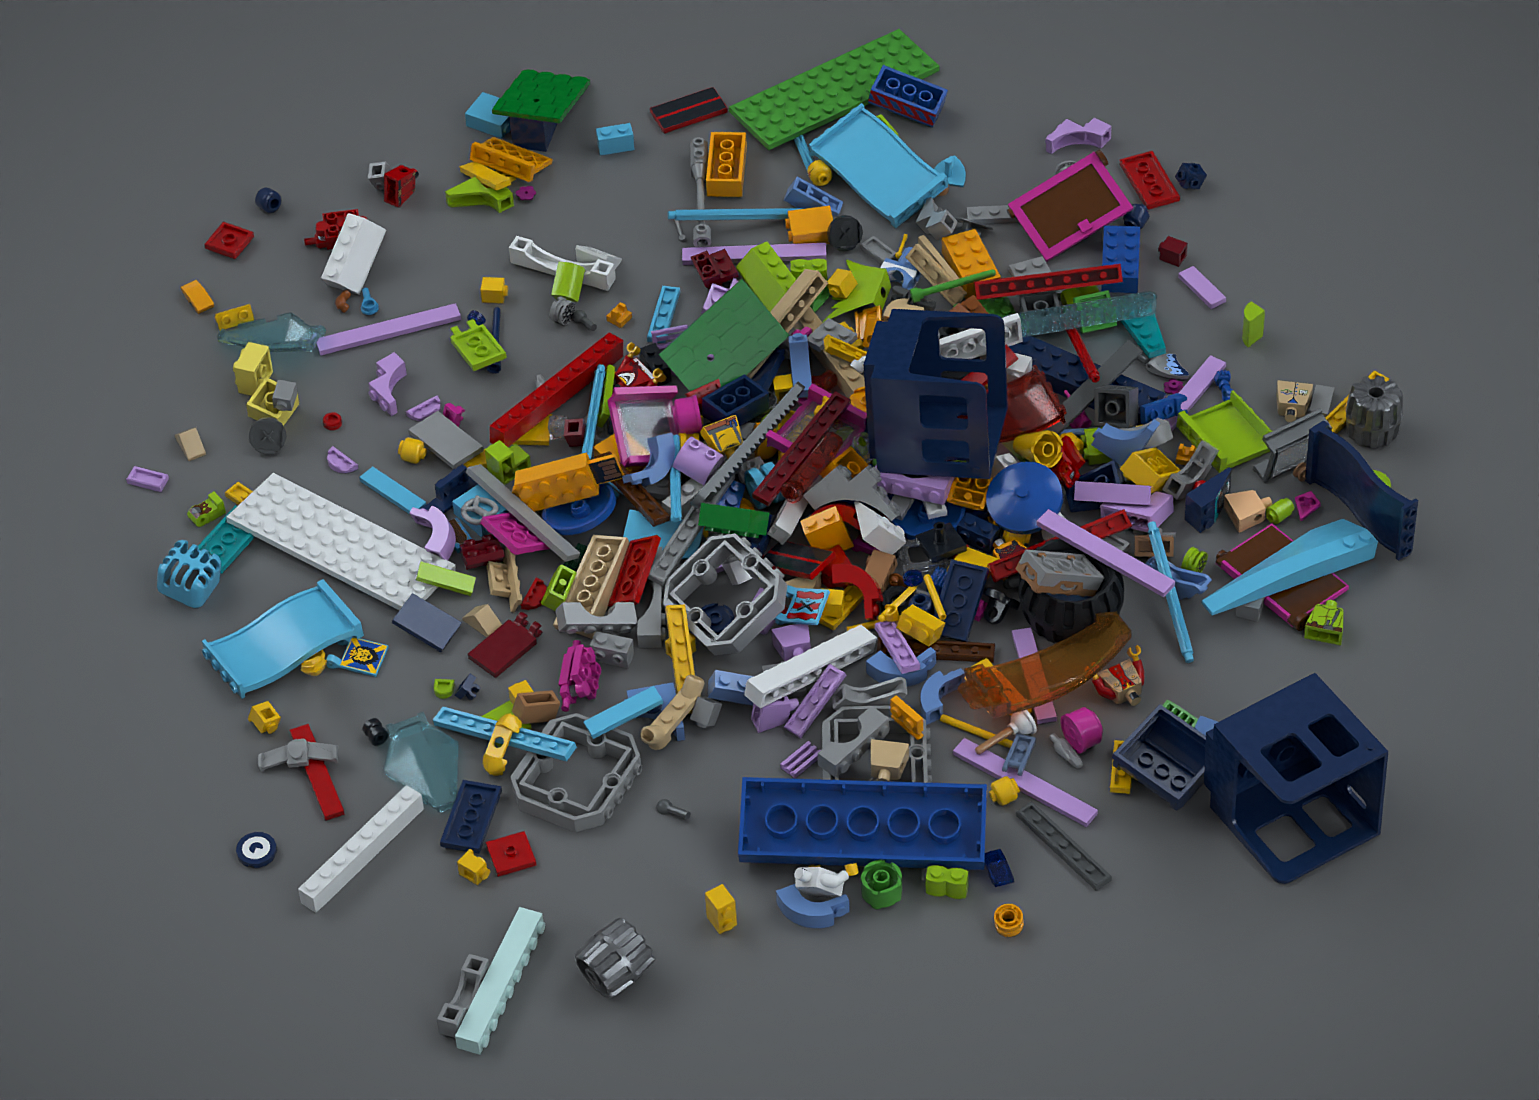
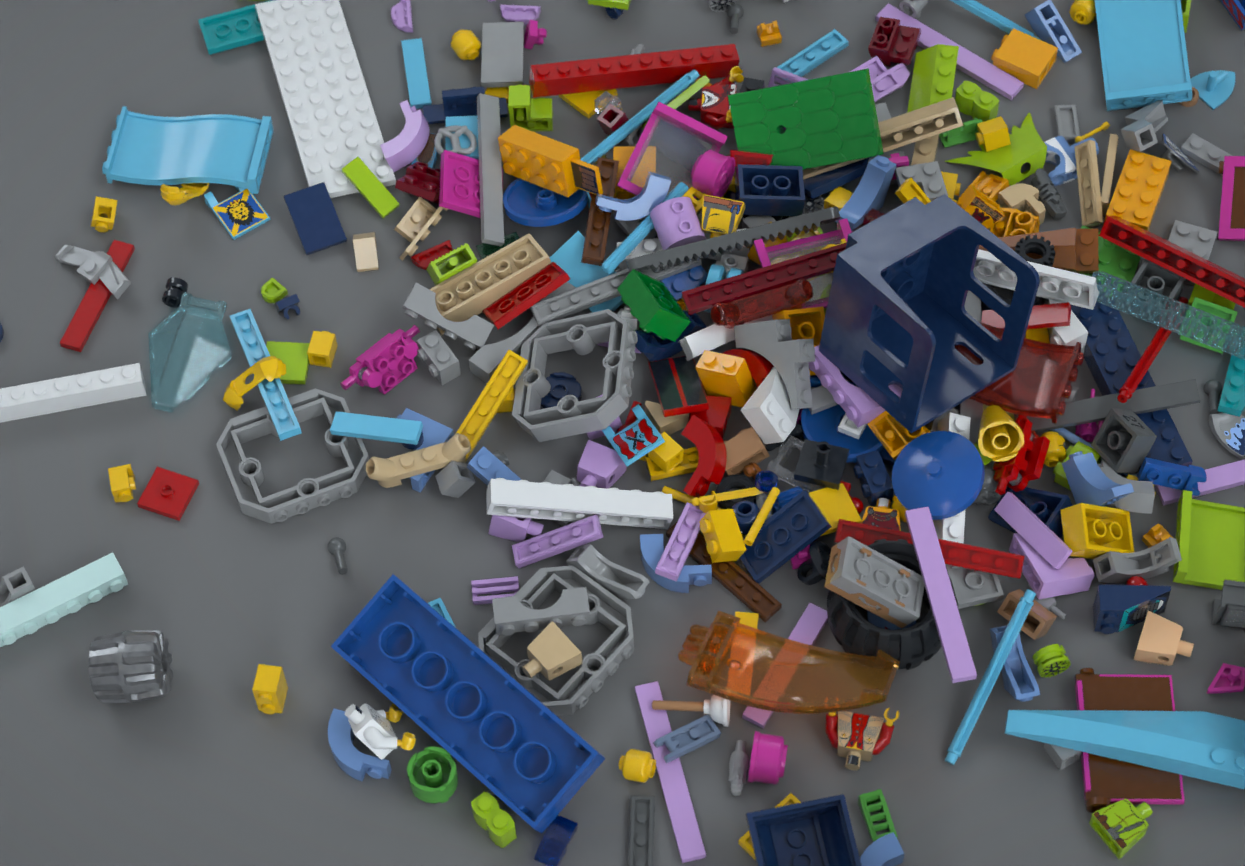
camera: 40 degrees right, 10 degrees up
(197, 560) = (167, 21): medium azure piece -> none
(470, 816) = (170, 432): dark blue plate -> none
(505, 645) = (361, 287): dark red tile -> none
(536, 706) = (316, 367): medium nougat brick -> none
(844, 233) = (1045, 84): black tile -> none
(906, 717) = (607, 630): light orange plate -> none
(918, 293) = (1050, 192): bright green piece -> none
(933, 691) = (675, 612): medium blue arch -> none
(972, 729) = (676, 678): yellow bar -> none
(1173, 386) = (1218, 456): magenta plant -> none
(1279, 510) = (1192, 667): lime brick -> none

